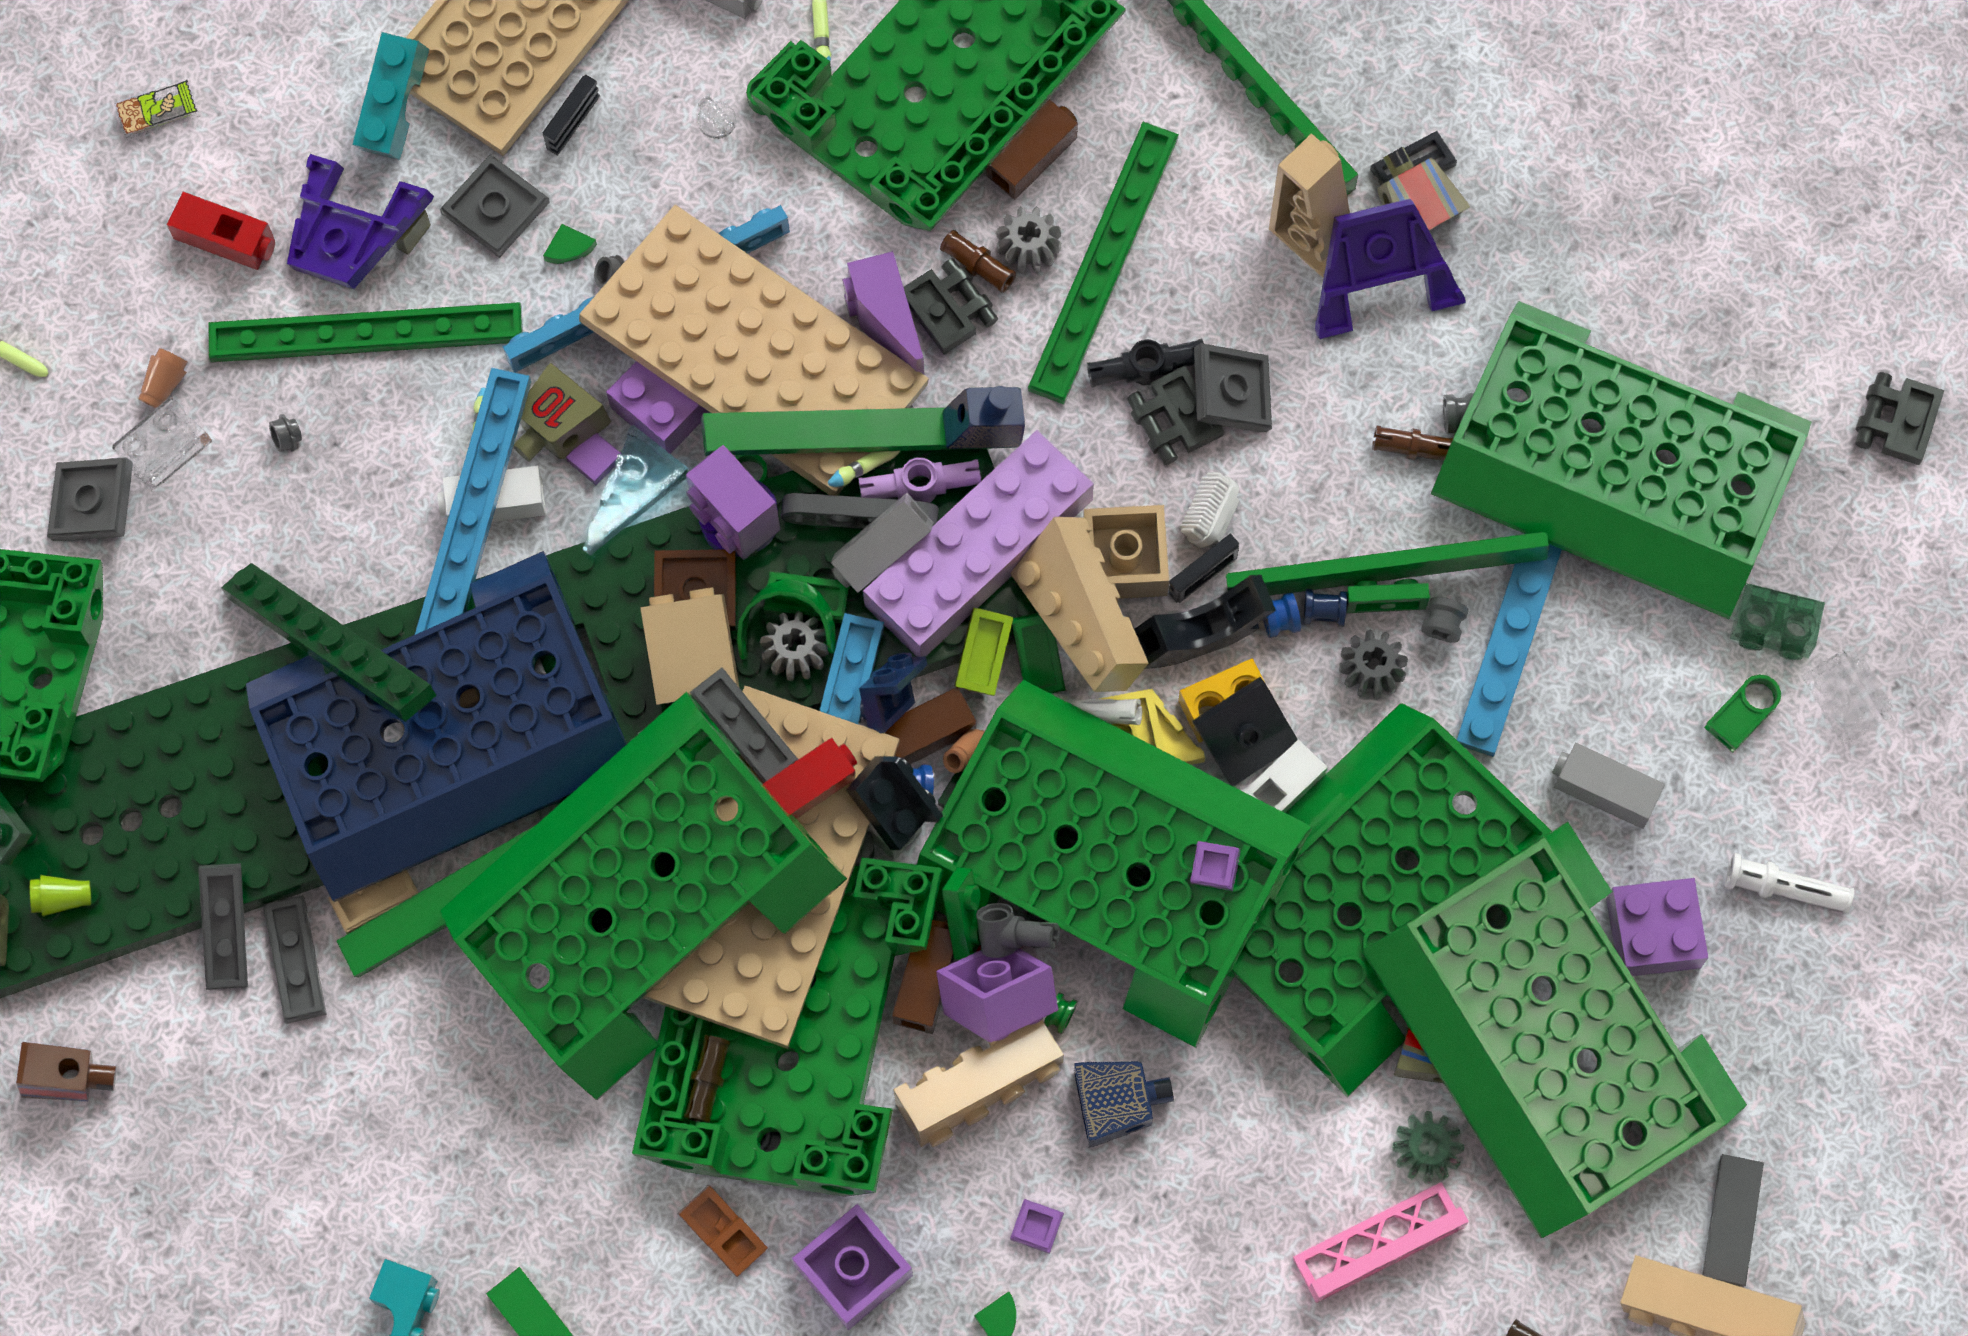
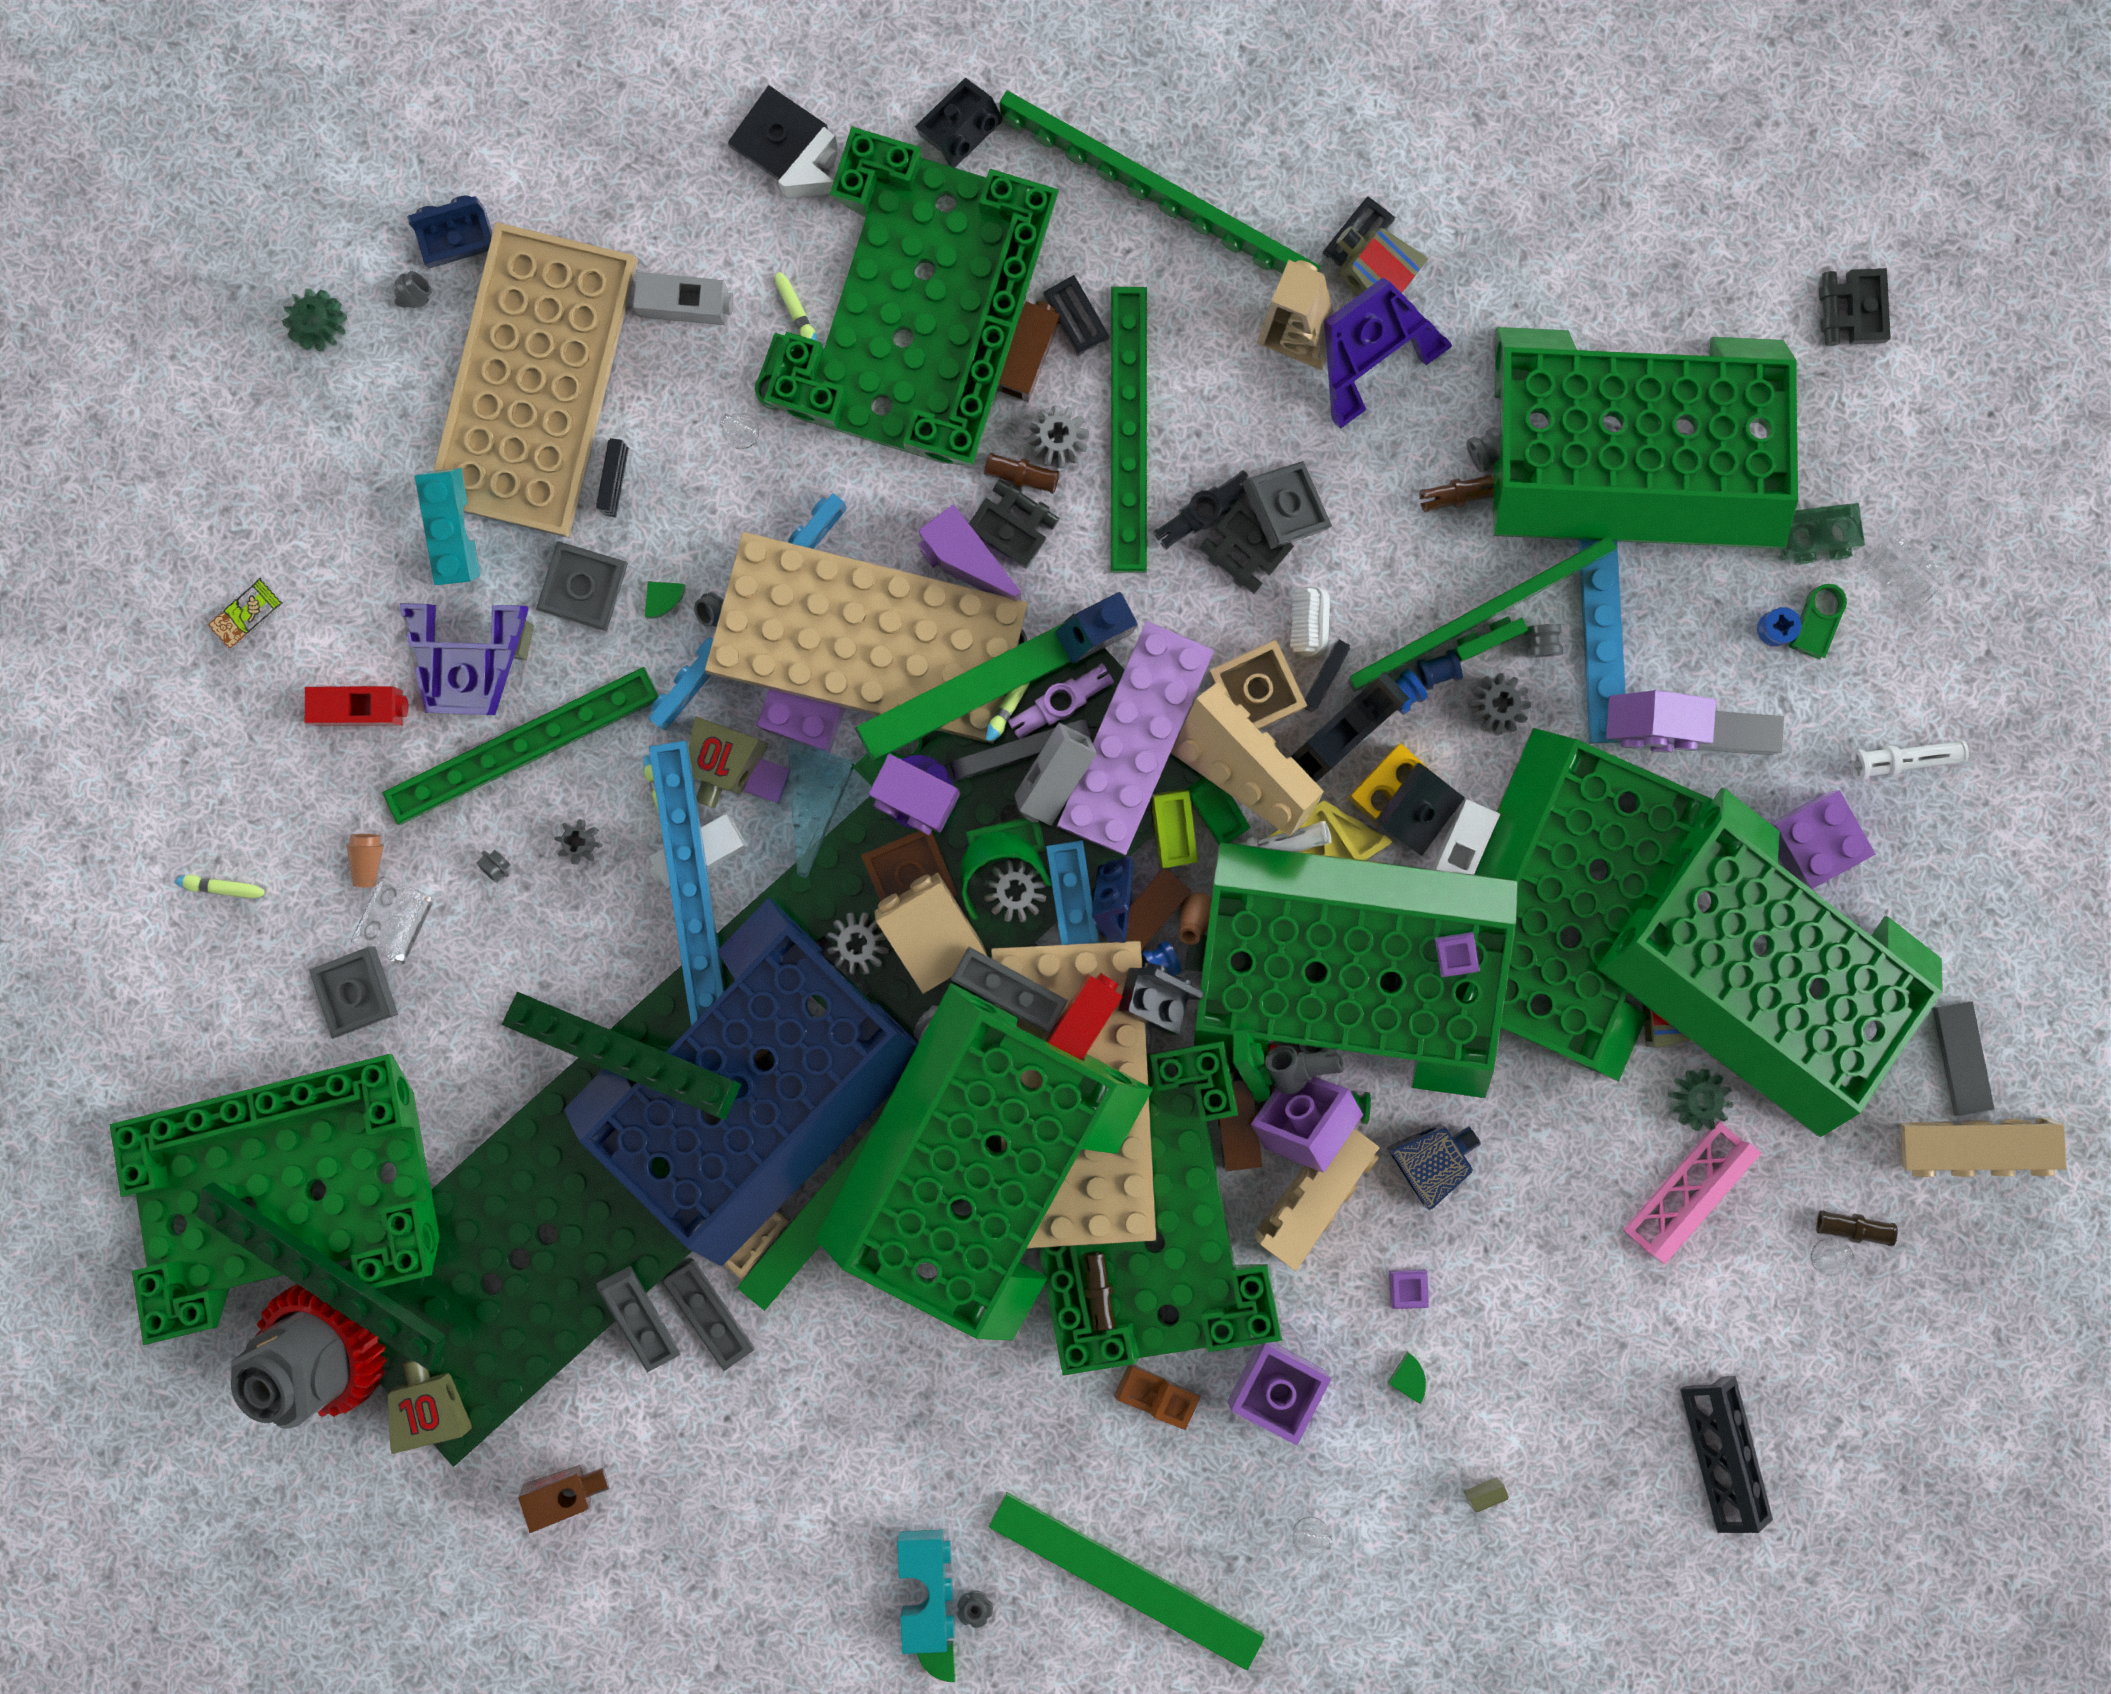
camera: 25 degrees left, 15 degrees up
(58, 894) = (486, 1356): lime cone -> none
(379, 451) = (575, 832): none -> dark grey gear
(603, 625) = (847, 936): none -> light grey gear
(1100, 165) = (1090, 342): none -> black tile
(1530, 734) = (1661, 720): none -> medium lavender brick
(1695, 708) = (1771, 631): none -> blue wheel

